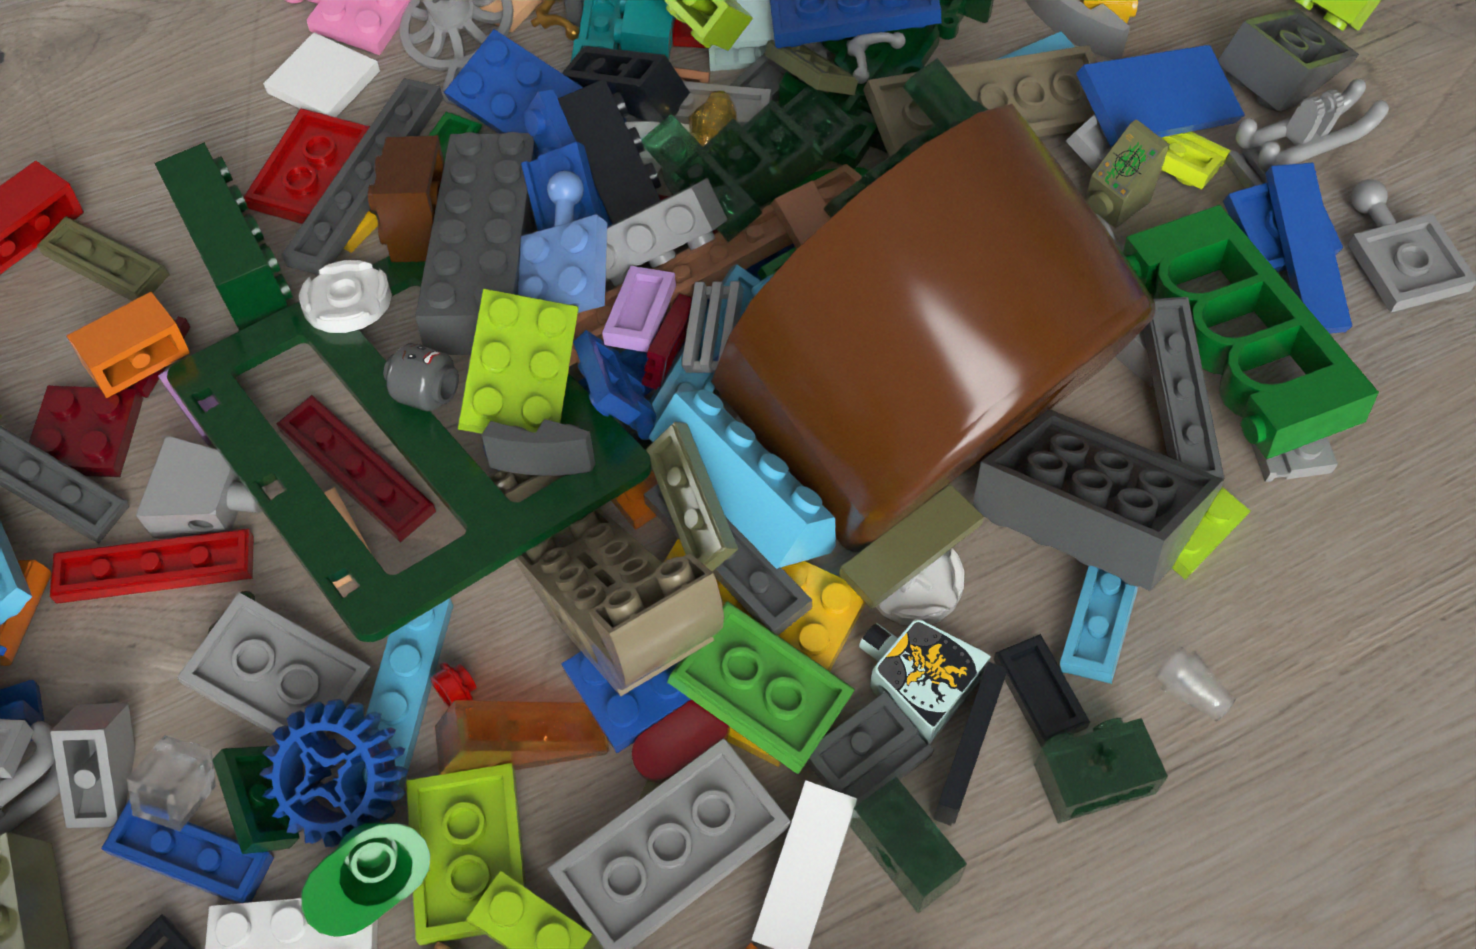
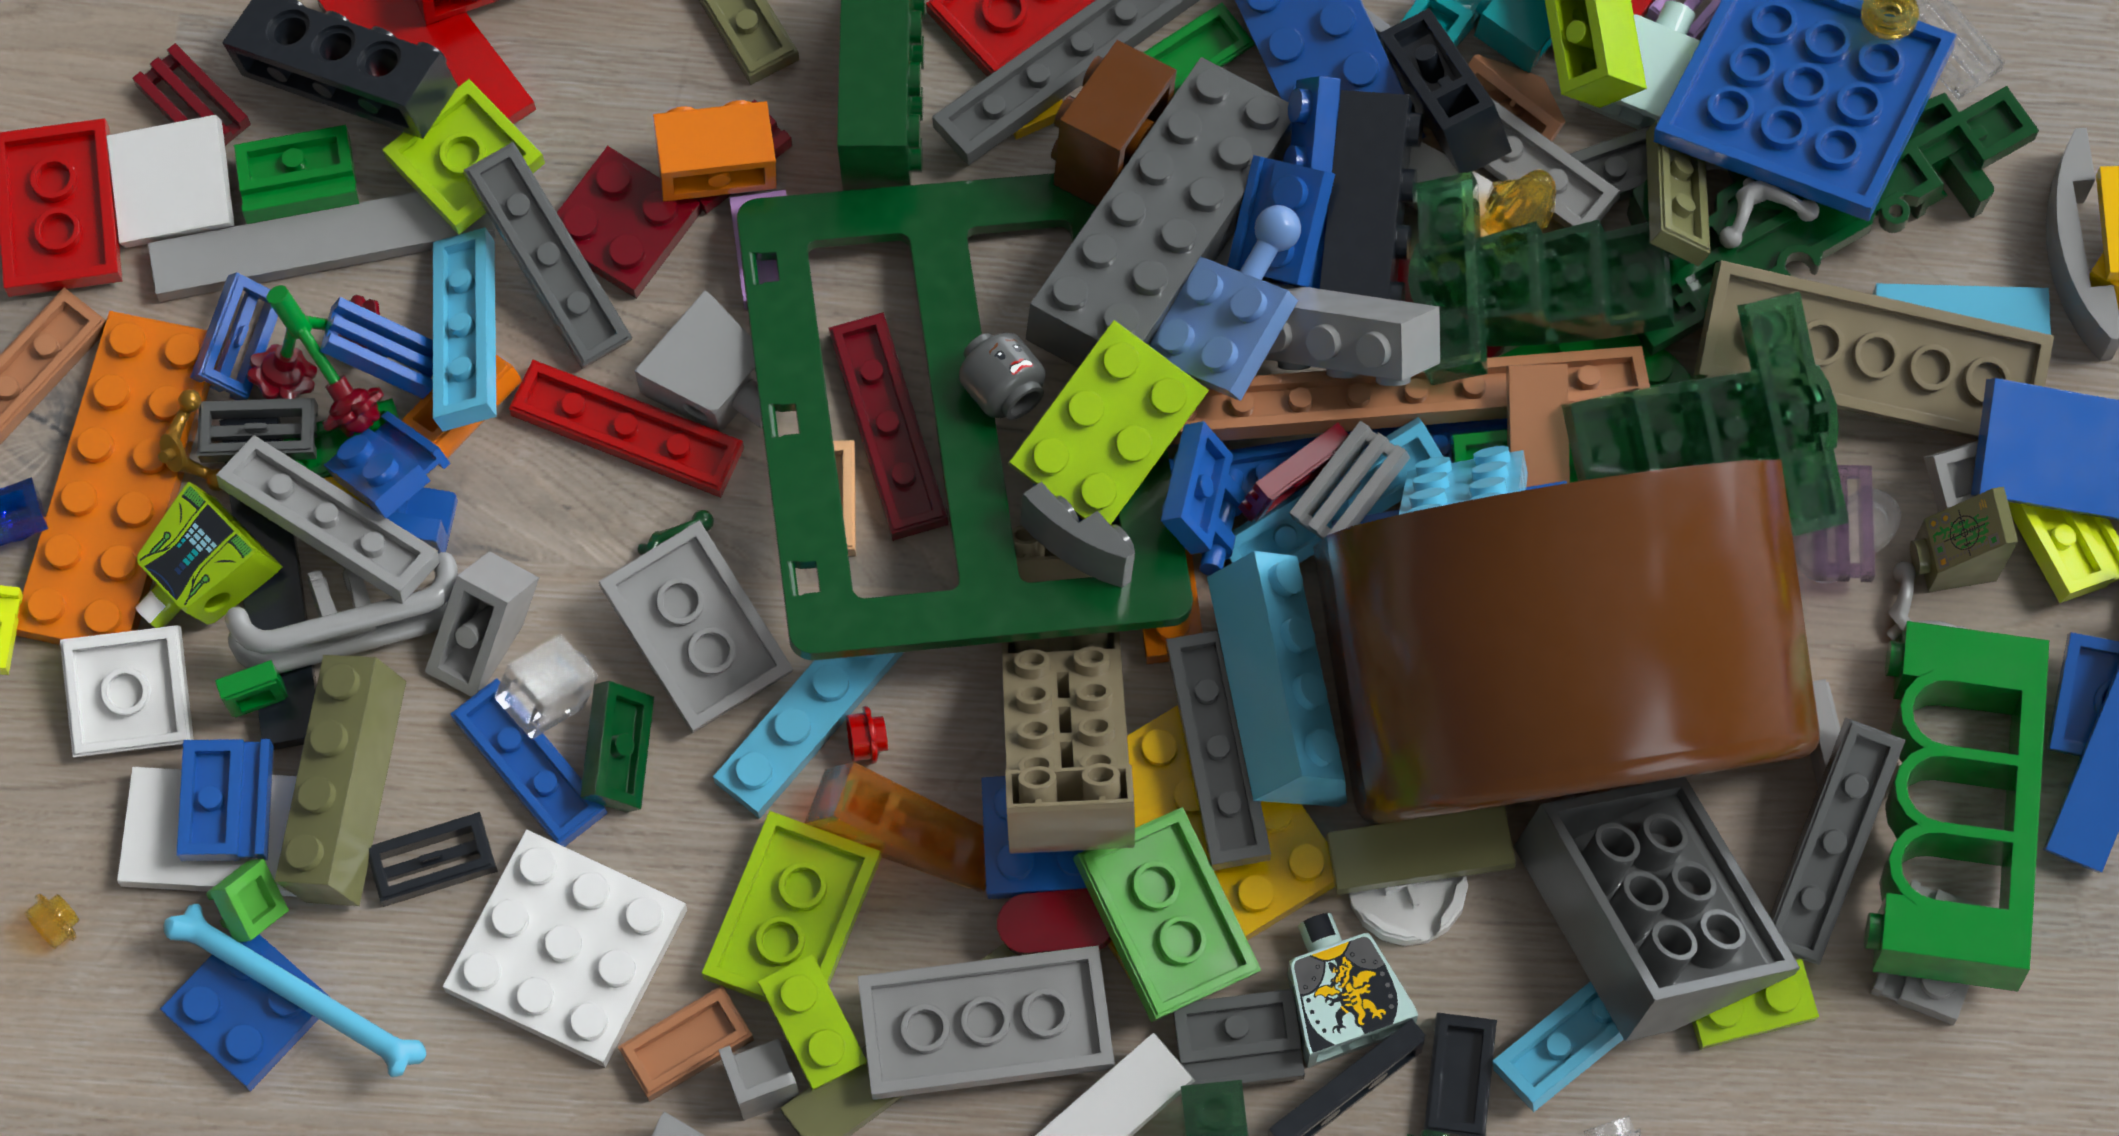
camera: 30 degrees right, 10 degrees up
(307, 743) = (697, 714): blue gear -> none
(345, 296) = (977, 210): white tile -> none
(364, 877) = (684, 887): green piece -> none
(639, 308) = (1279, 421): lavender tile -> none
(691, 497) = (1206, 676): olive tile -> none

